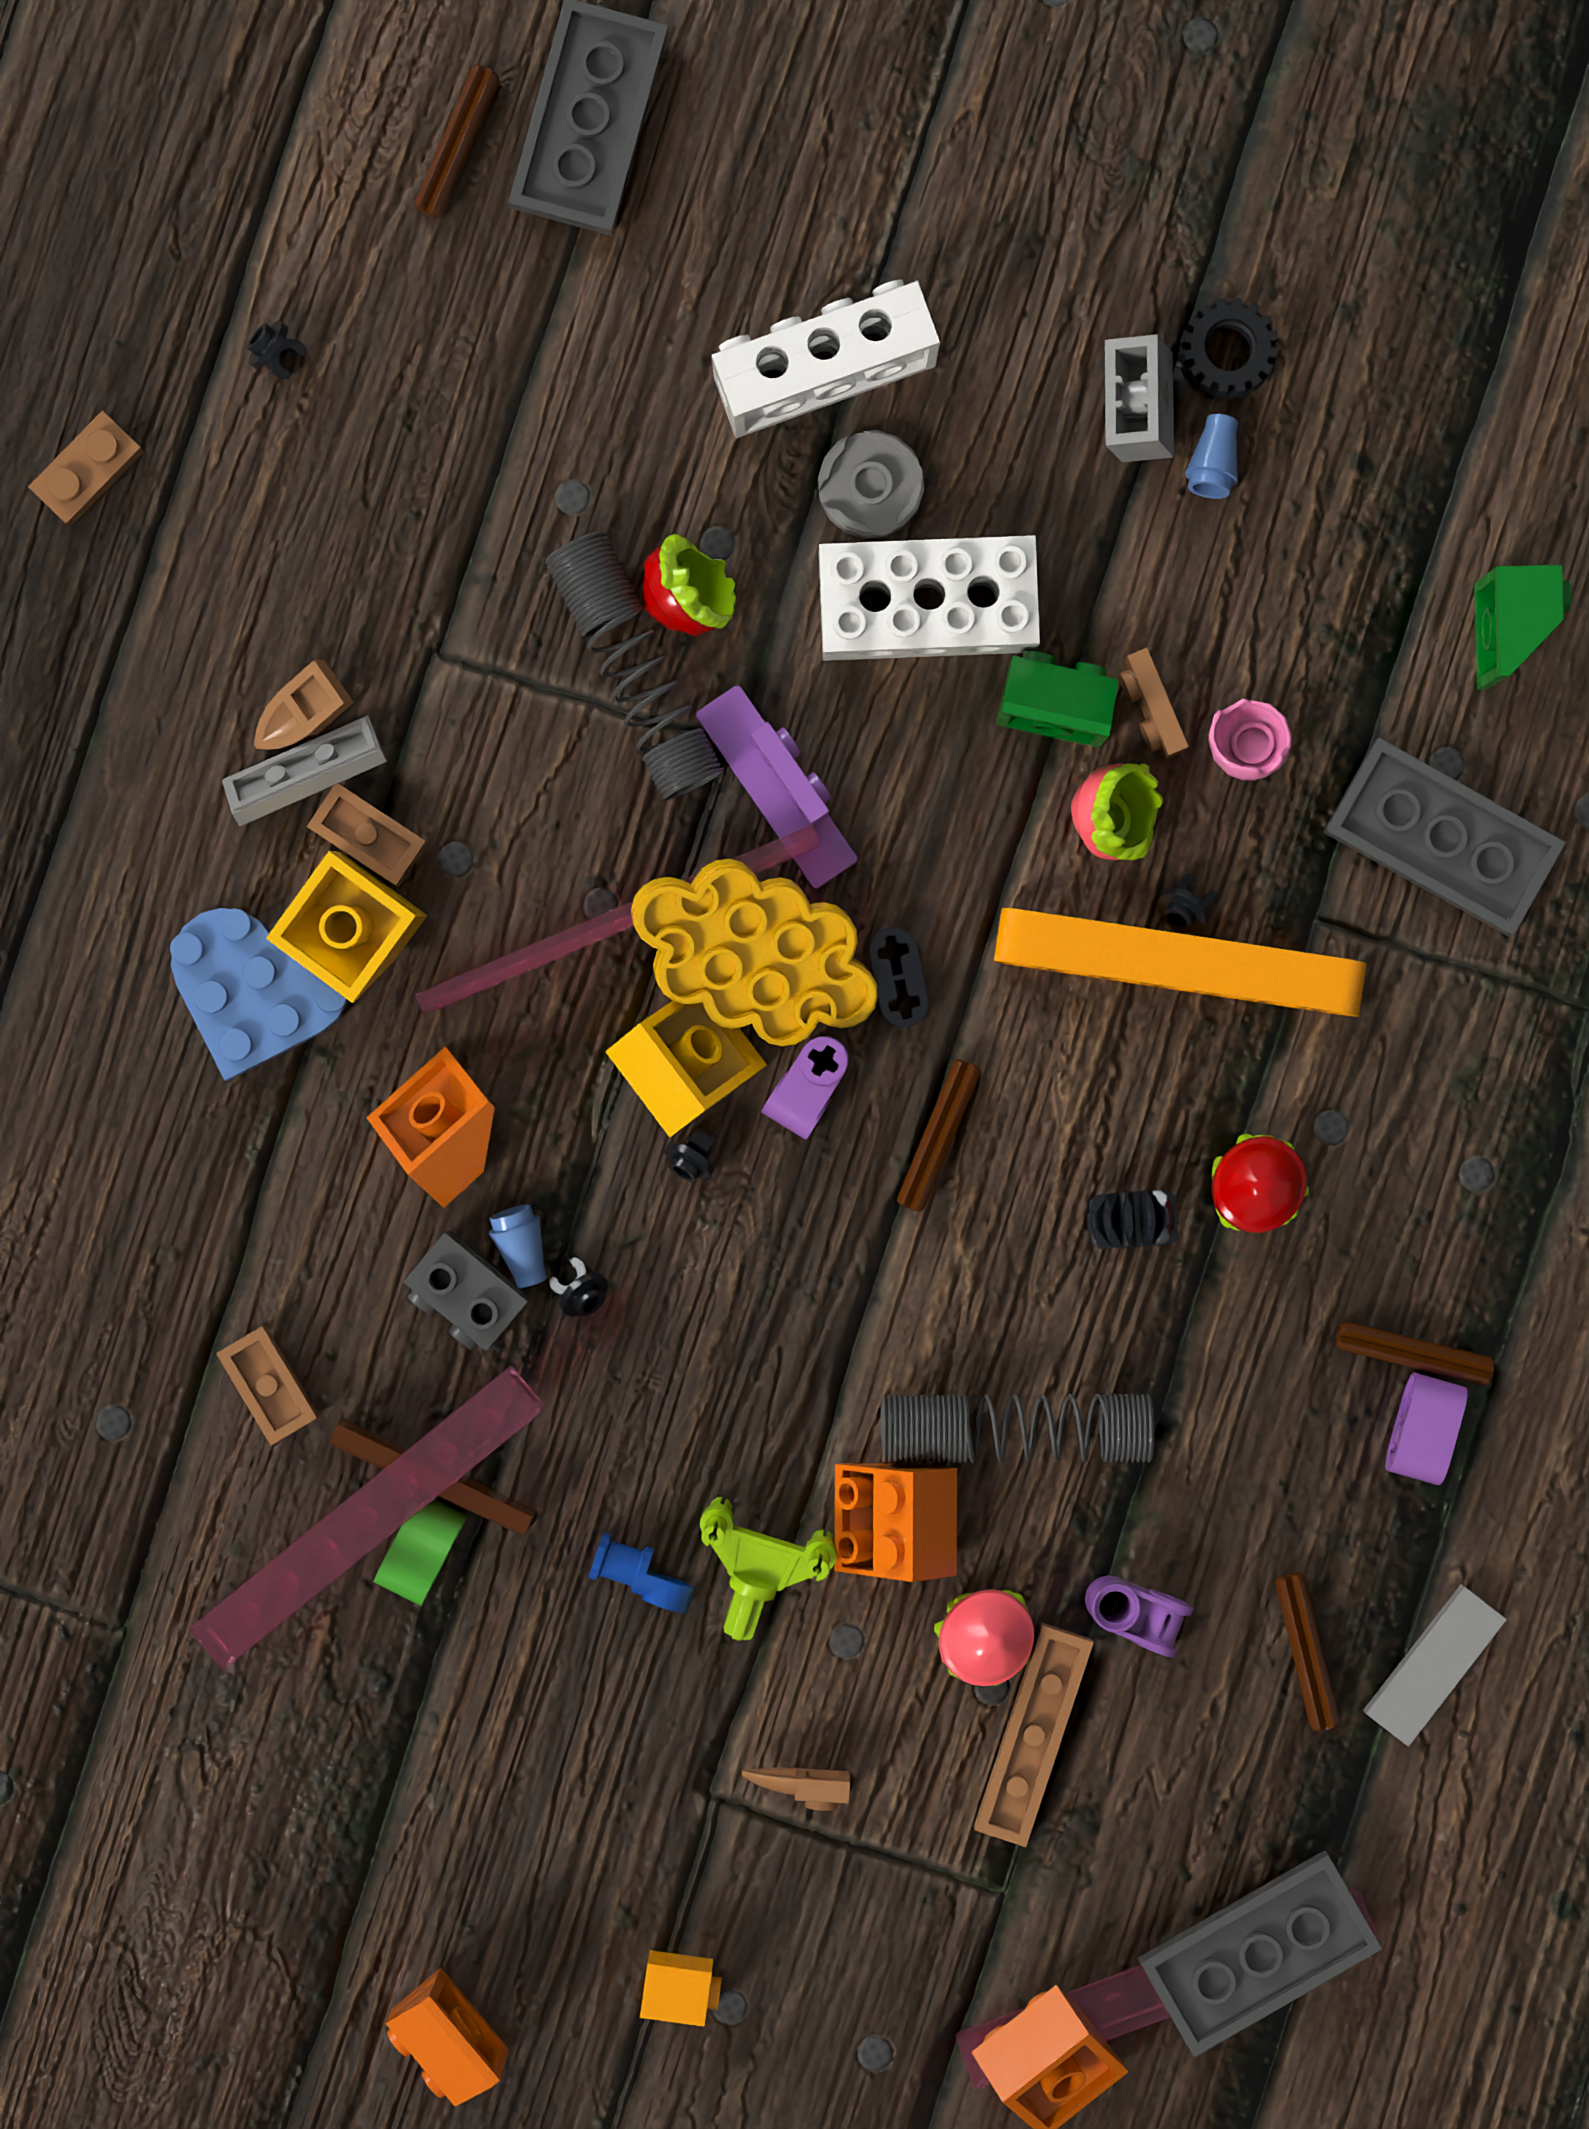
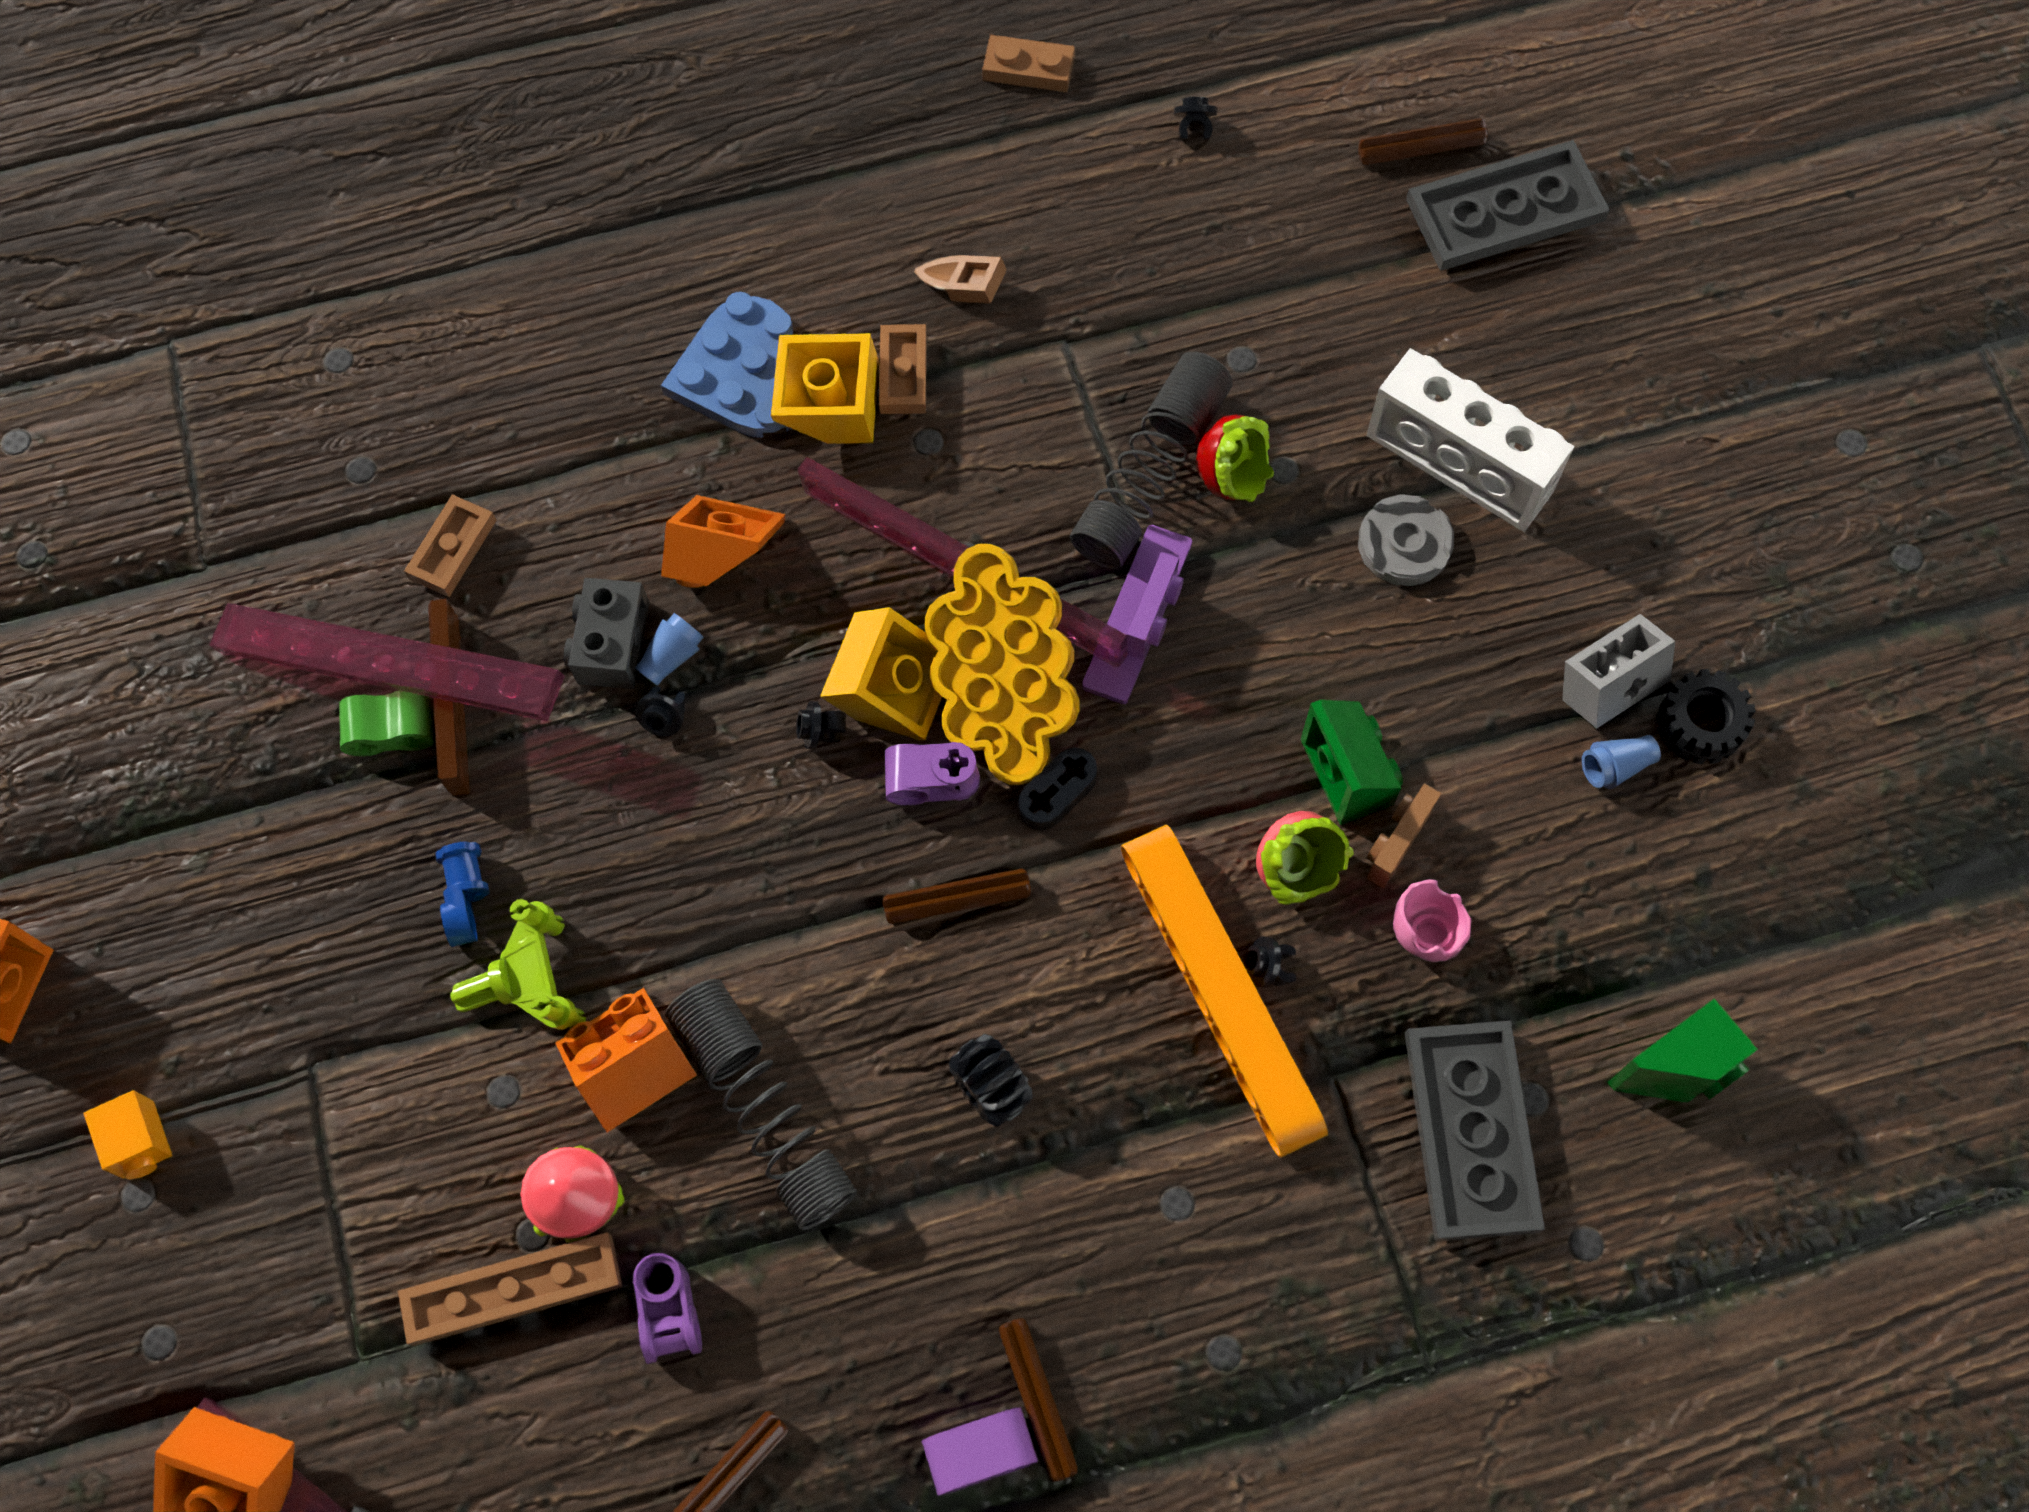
camera: 60 degrees right, 20 degrees down
(303, 770) = (919, 302): light grey tile -> none
(816, 1787) = (362, 1140): medium nougat plate -> none
(944, 565) = (1360, 594): white brick -> none
(1258, 1184) = (1088, 1167): red hair -> none

